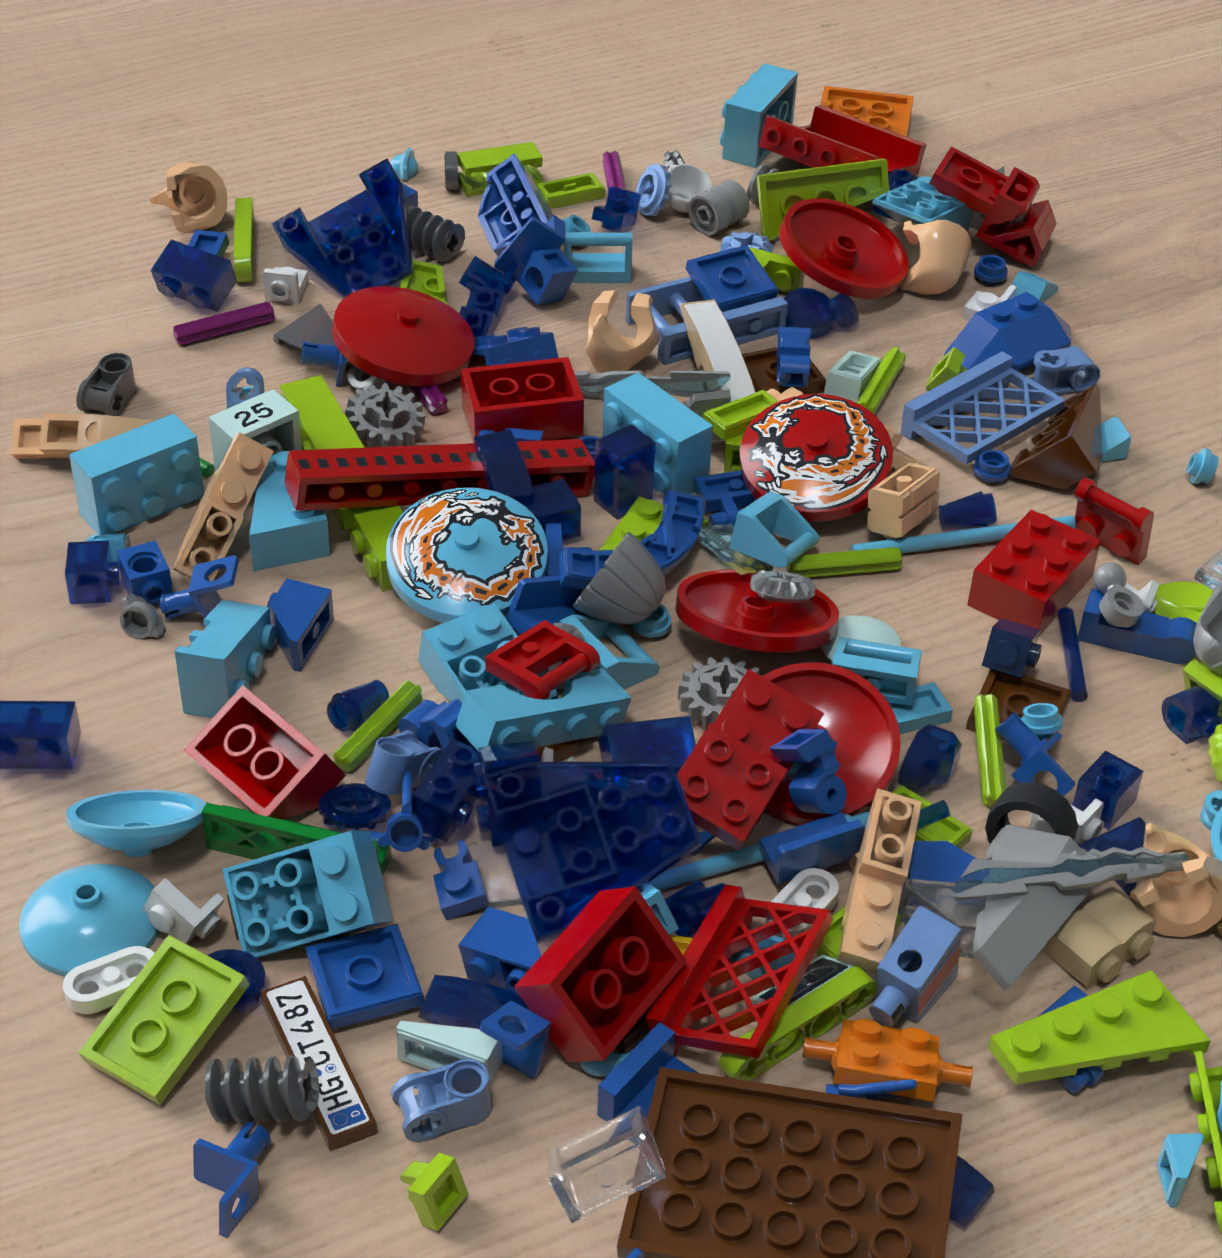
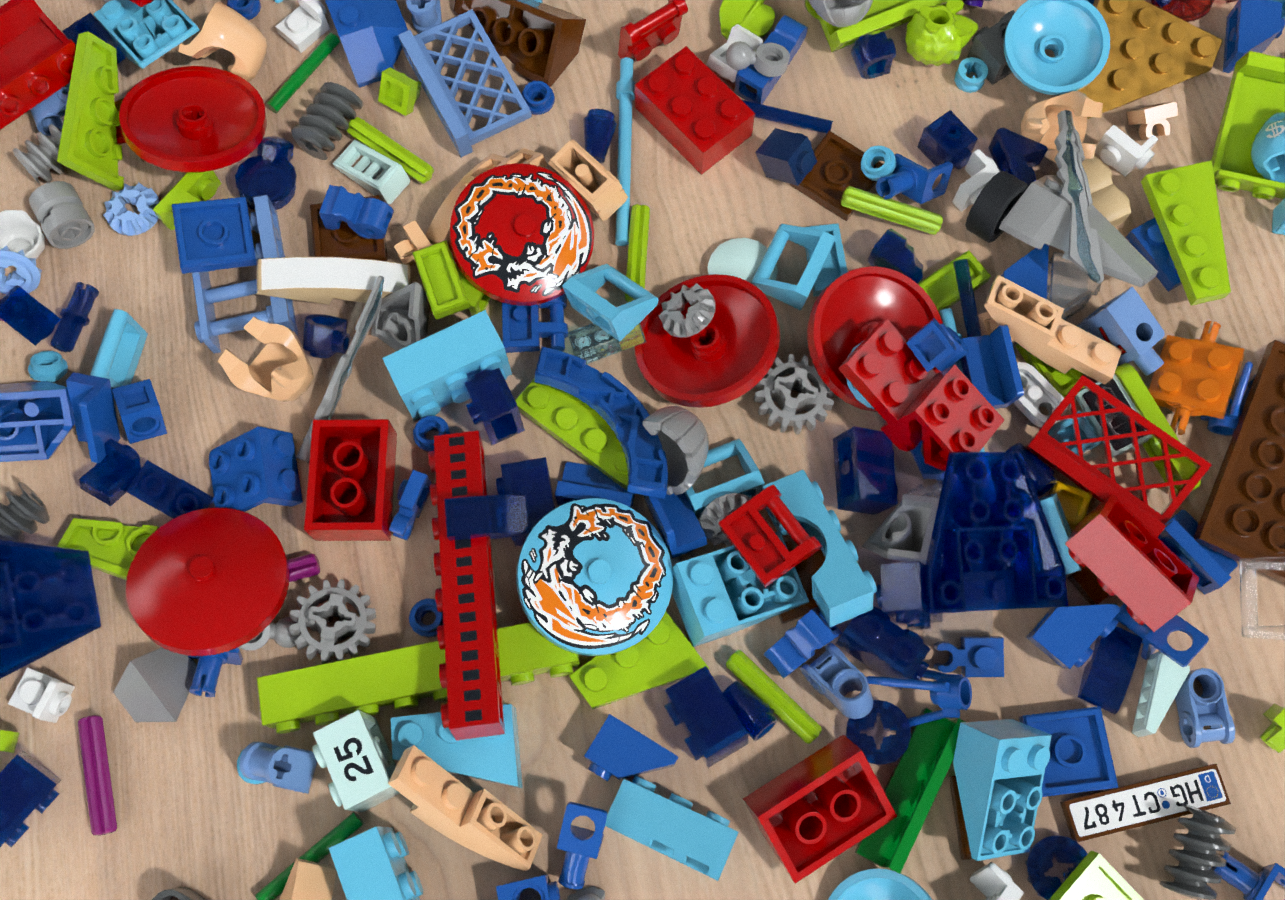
camera: 75 degrees left, 30 degrees up
(342, 663) = (706, 717): none -> clear blue brick
(387, 623) = (652, 662): none -> lime wing
(642, 236) = (74, 317): none -> clear blue axle
(662, 361) = (325, 335): none -> clear blue plate
(889, 331) = (324, 118): none -> dark grey piece
(927, 315) = (303, 72): none -> green bar
(1184, 976) = (1123, 152): none -> white bracket

